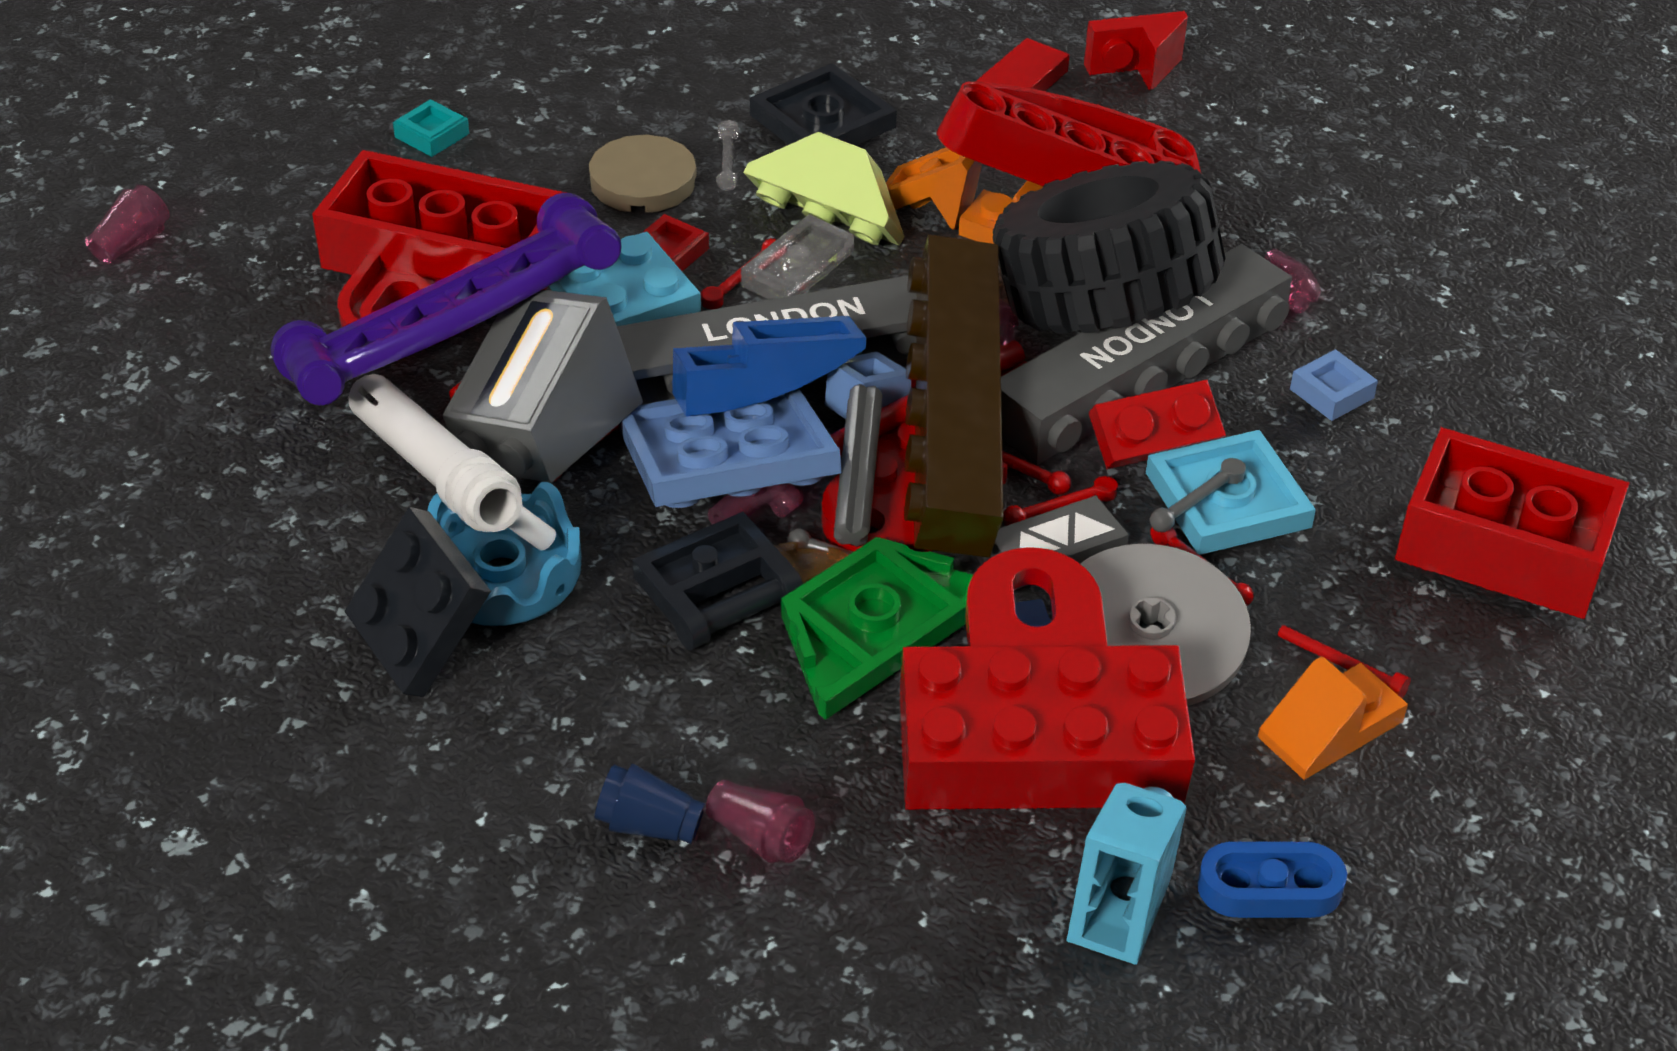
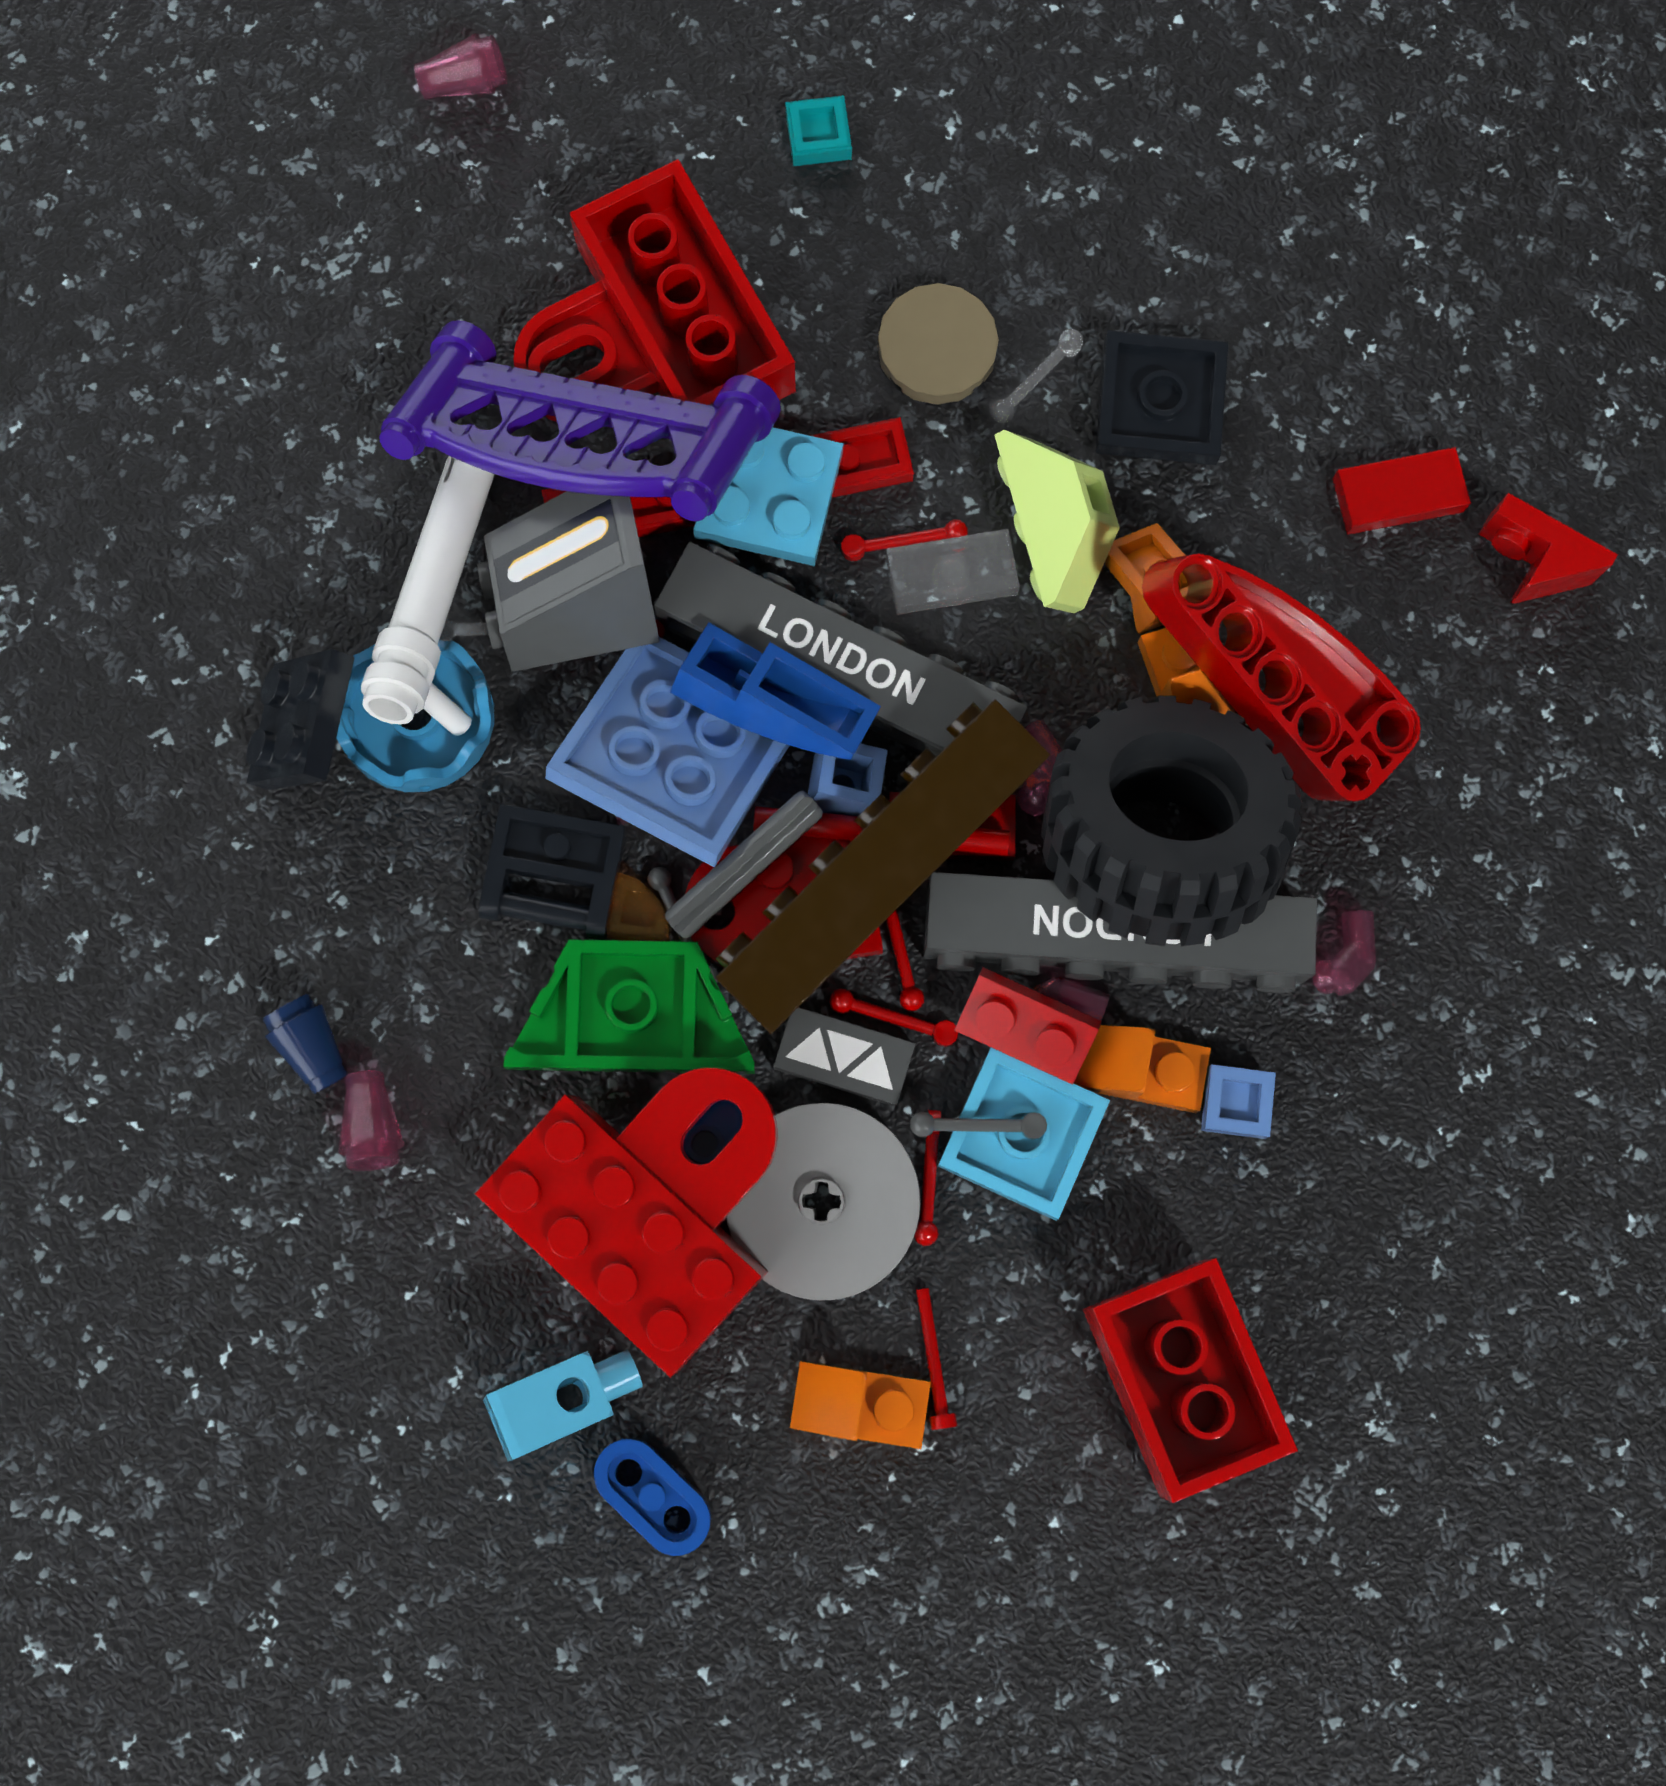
camera: 40 degrees right, 35 degrees up
(1256, 402) = (1145, 1068): none -> orange slope

